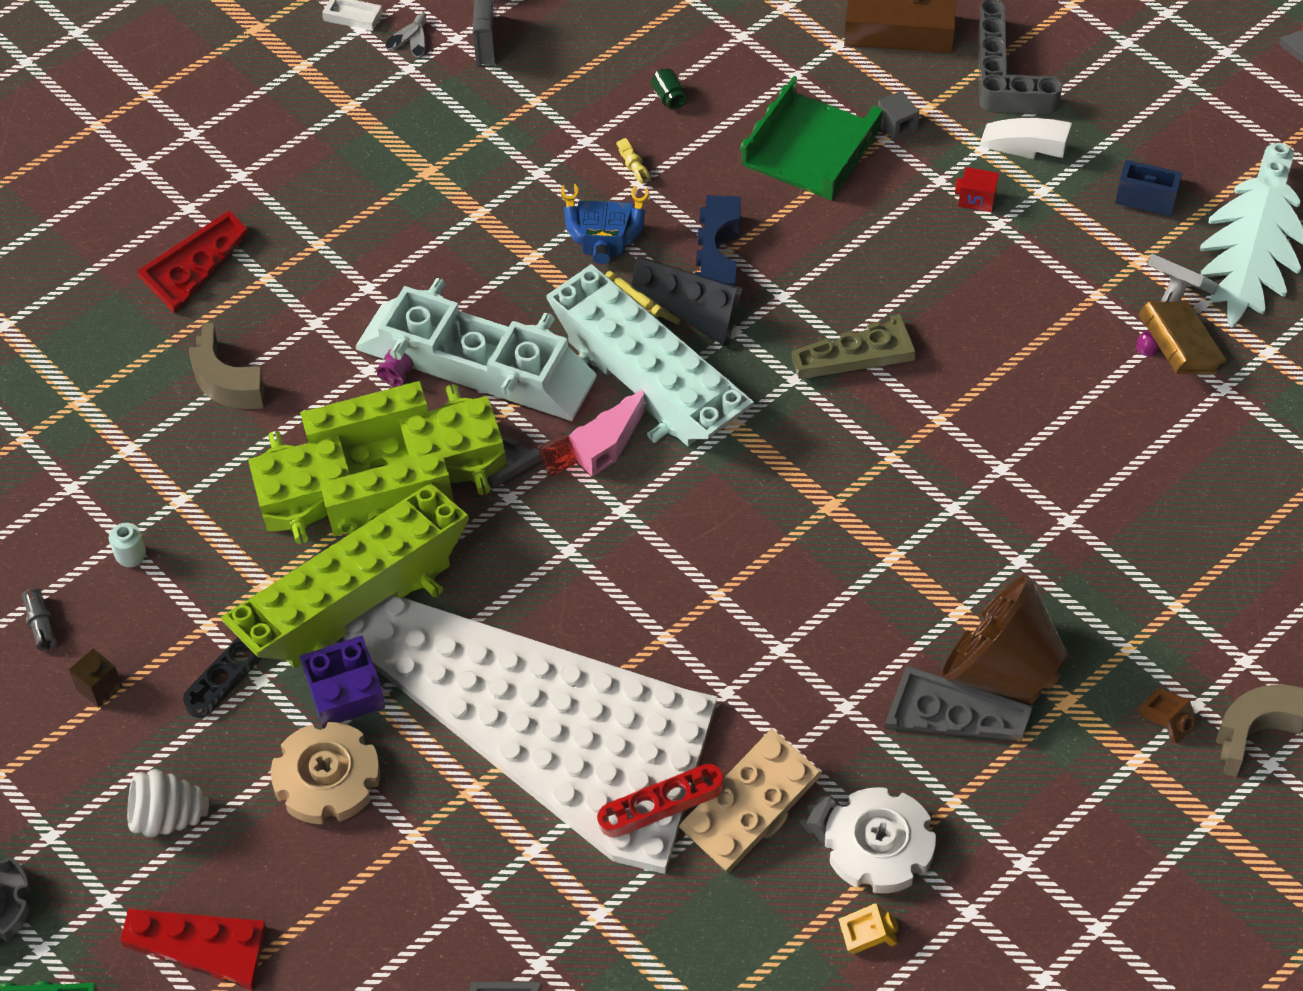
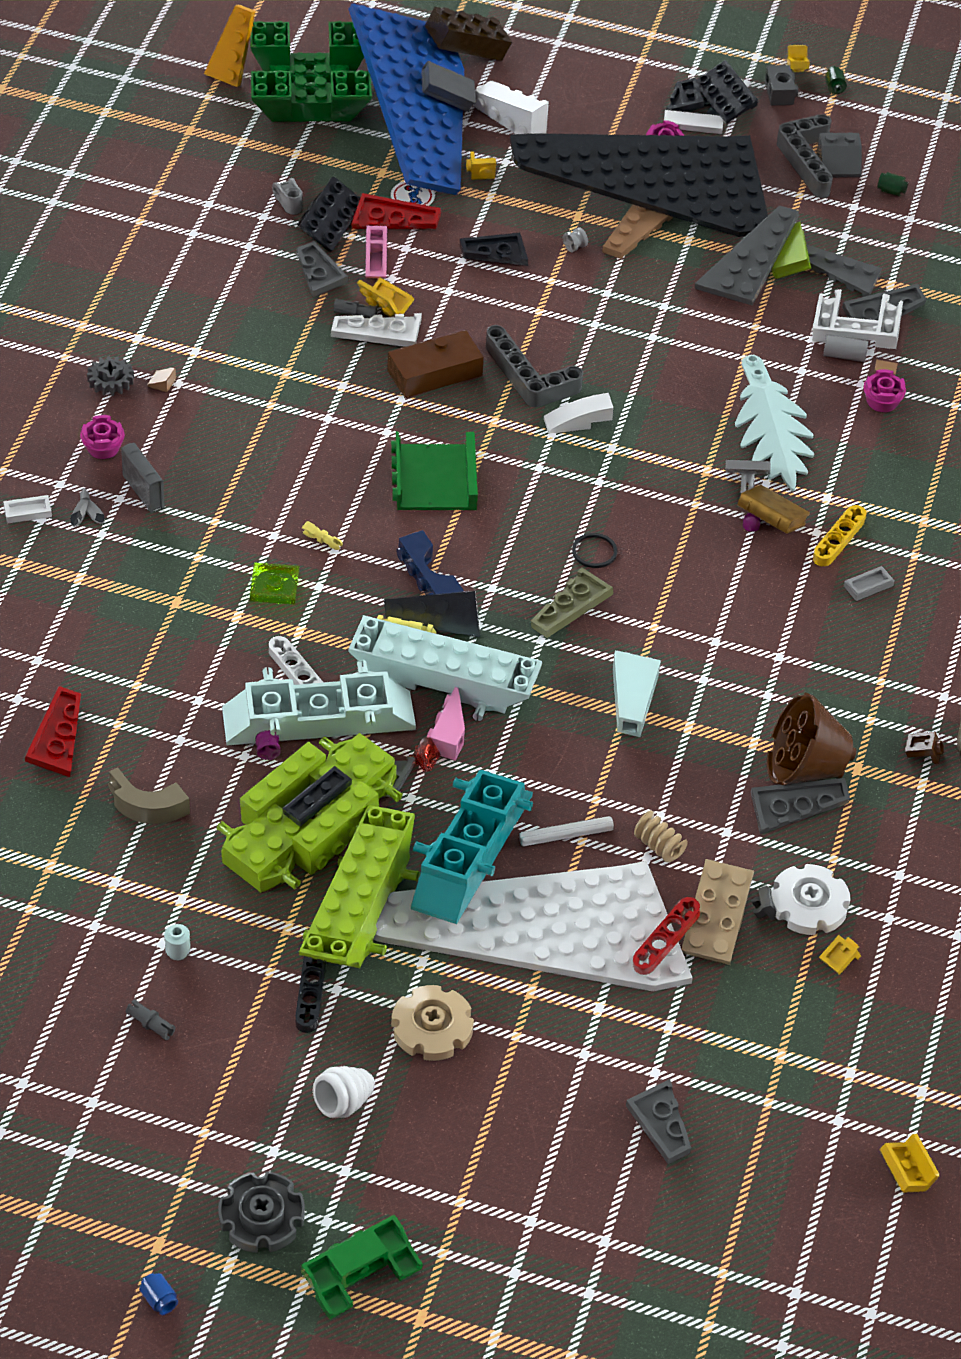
camera: 35 degrees left, 5 degrees down
(95, 678) = (227, 1036): dark brown brick -> none
(211, 944) = (435, 1162): red wing -> none
(342, 681) = (401, 960): dark purple slope -> none
(382, 447) = (317, 796): none -> black tile
(490, 593) = (469, 846): none -> teal piece
(498, 297) = (291, 653): none -> white beam
(540, 192) = (274, 583): none -> clear neon green tile
(604, 227) = (338, 589): blue torso -> none
(652, 617) = (566, 831): none -> white axle
(669, 88) = (309, 474): dark green brick -> none
(751, 674) = (659, 837): none -> tan piece
(852, 485) = (633, 690): none -> light aqua slope
(899, 115) = (485, 431): dark grey brick -> none
(939, 281) = (594, 535): none -> black piece
(977, 189) = (573, 463): red brick -> none
(1148, 187) = (683, 417): dark blue slope -> none
(1246, 477) = (869, 583): none -> light grey tile
(1251, 406) = (836, 533): none -> yellow beam

